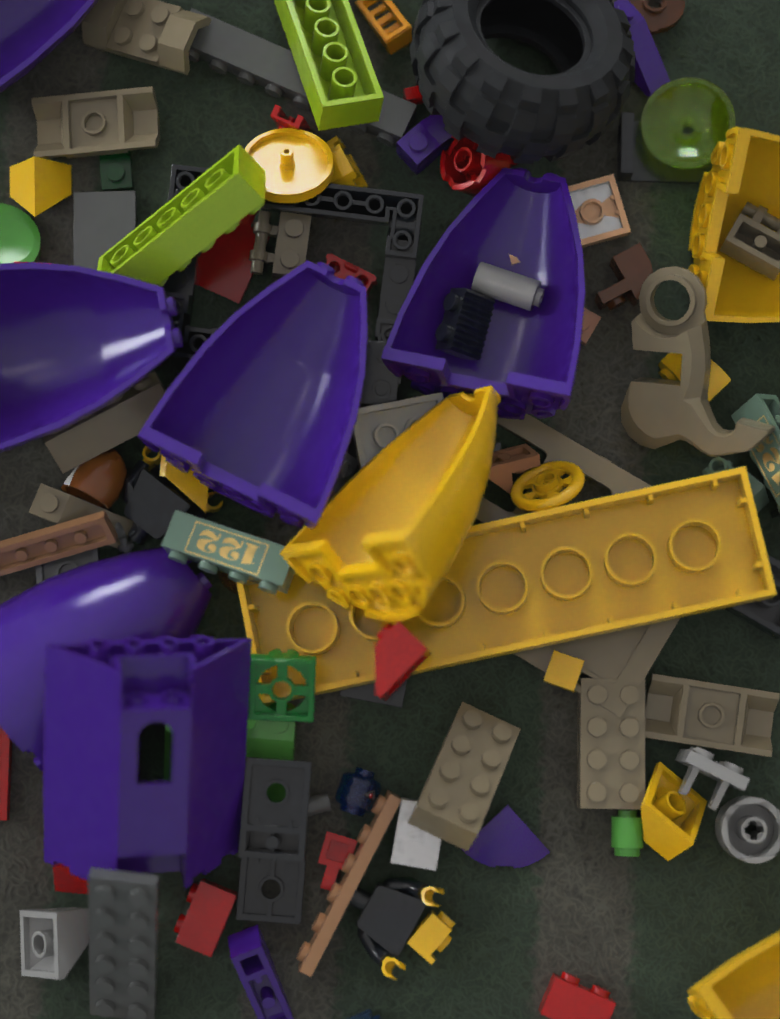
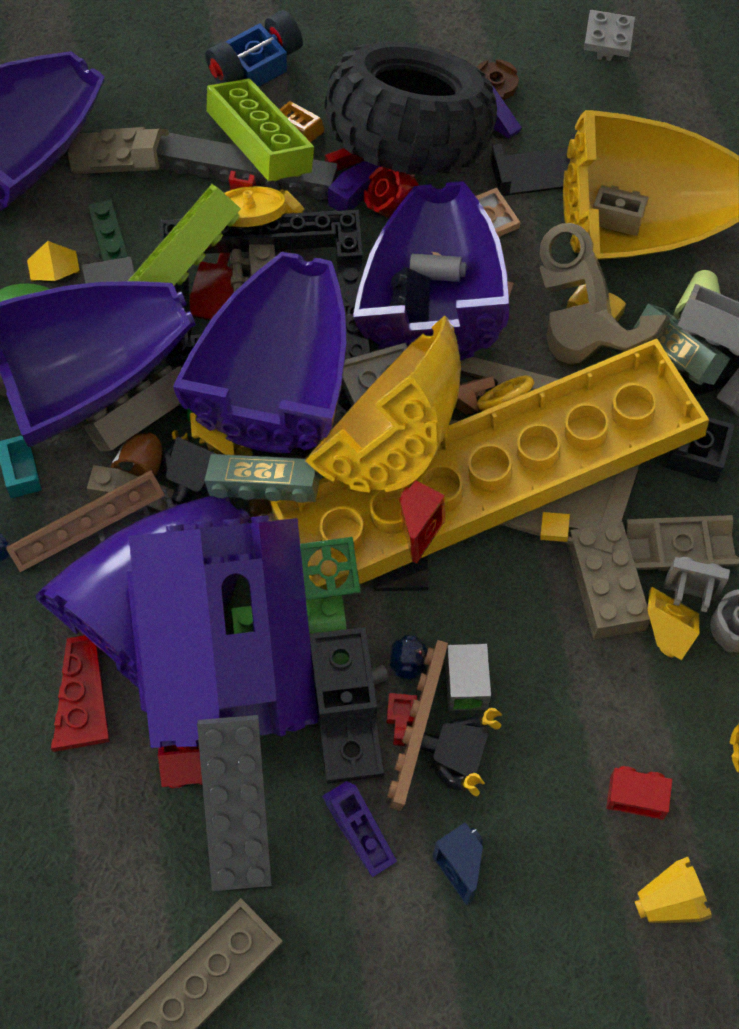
camera: 15 degrees left, 20 degrees down
(52, 940) = (165, 829): light grey slope -> none
(96, 123) = (91, 215): dark tan piece -> none
(205, 917) = (300, 783): red piece -> none
(431, 935) = (499, 760): yellow brick -> none
(464, 776) = (495, 617): dark tan brick -> none
(506, 842) = (542, 675): dark purple brick -> none
(627, 833) = (641, 647): bright green brick -> none
(631, 270) = (526, 248): reddish brown brick -> none
(686, 104) = (537, 135): clear neon green dish -> none

